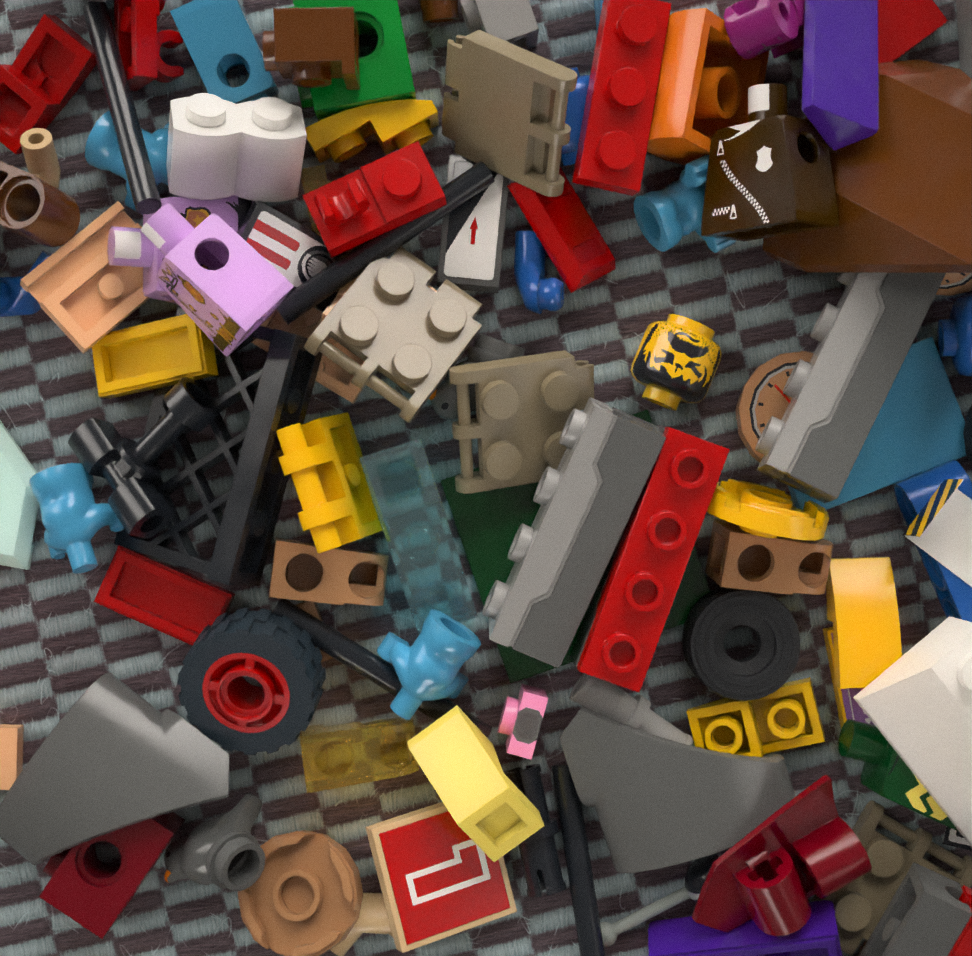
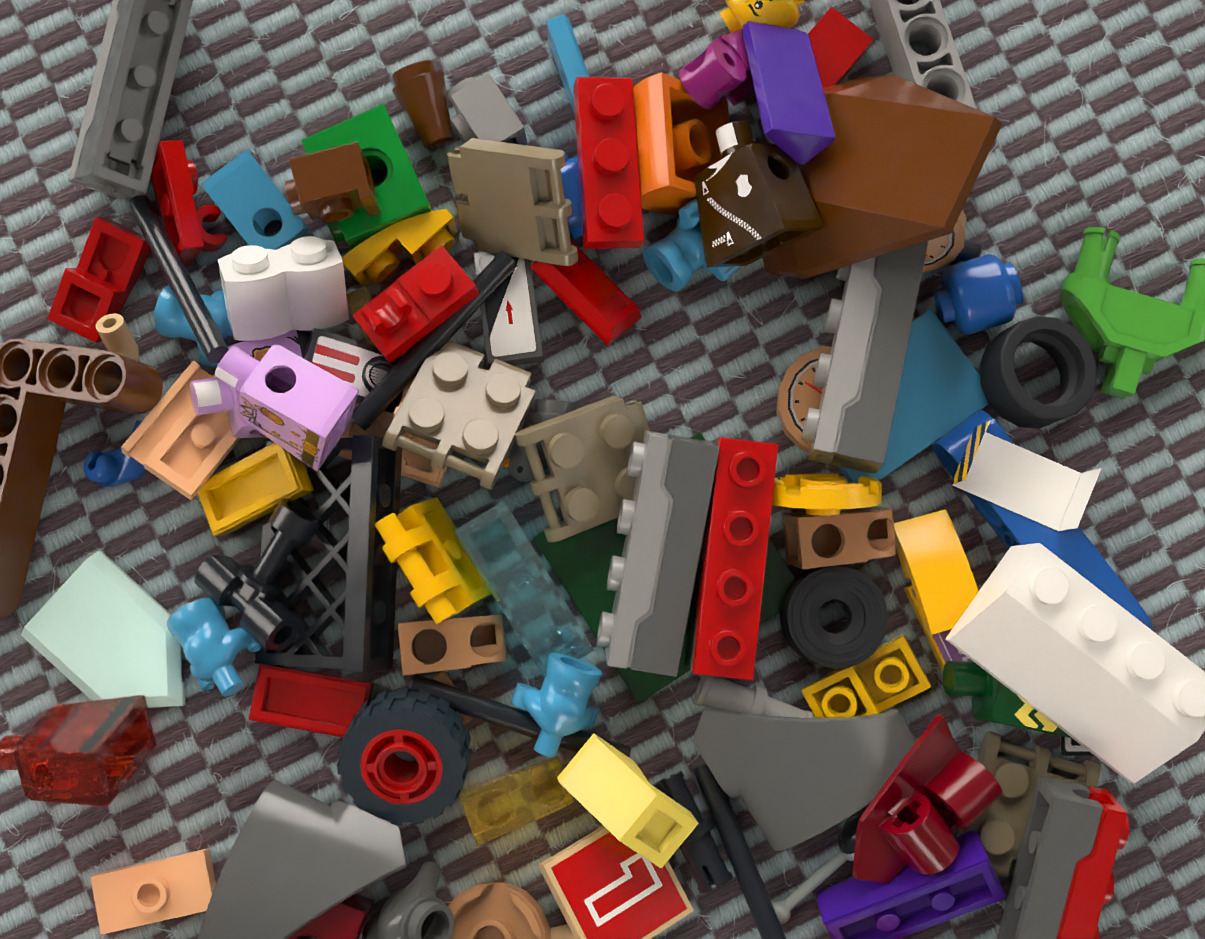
camera: 20 degrees left, 5 degrees down
(522, 720) = (656, 733): bright pink plate -> none
(529, 274) = (567, 338): blue arm -> none
(676, 361) = (714, 383): head -> none

